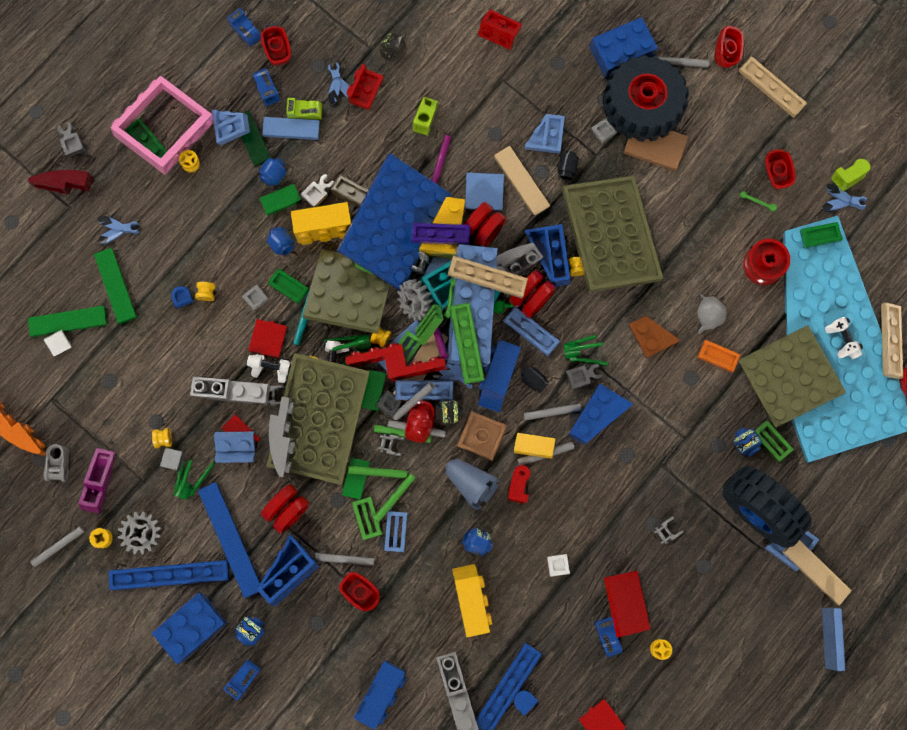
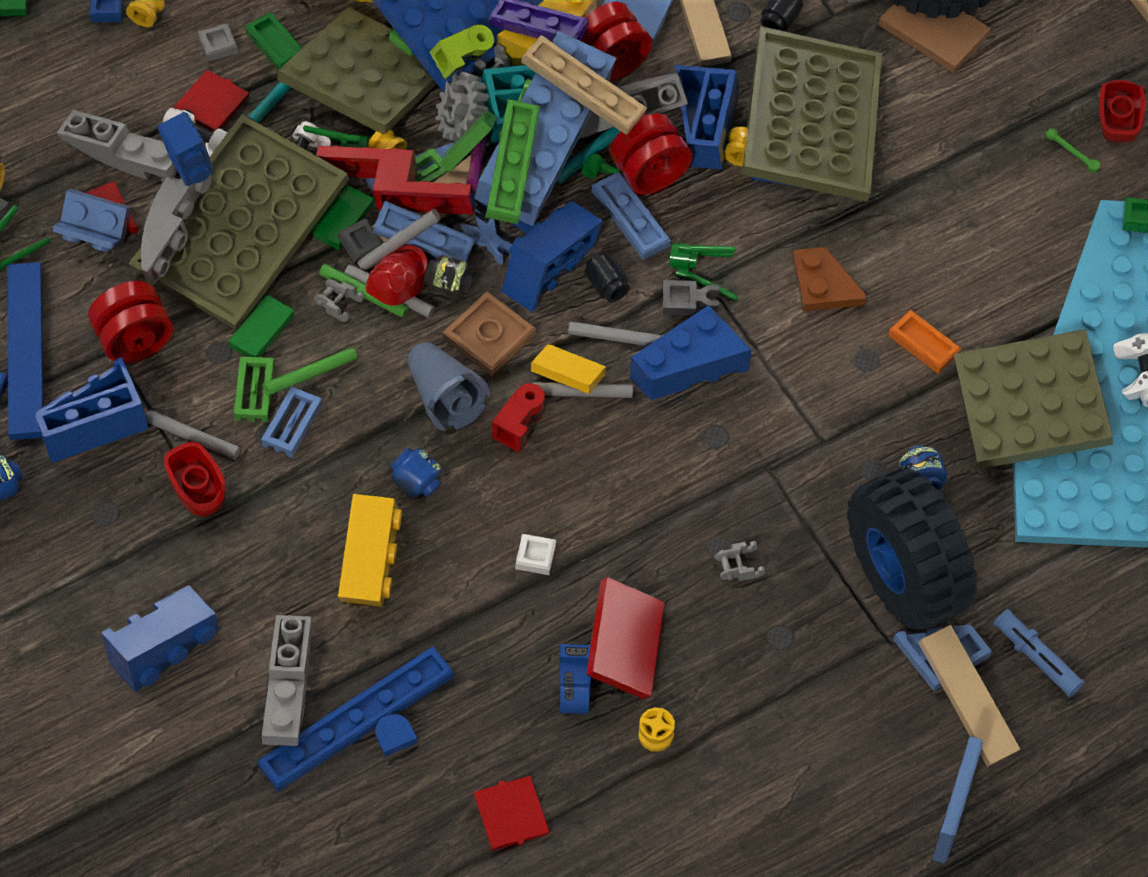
camera: 20 degrees right, 20 degrees down
(279, 403) = (186, 149): none -> blue brick
(377, 472) = (298, 325): bright green bar -> none
(401, 266) = (454, 50): none -> lime leg
(711, 313) = (932, 275): light grey hair -> none
(766, 261) = (1051, 228): red wheel -> none
(774, 432) = (977, 512): bright green tile -> none
(835, 525) = (1008, 624): none -> medium blue pin

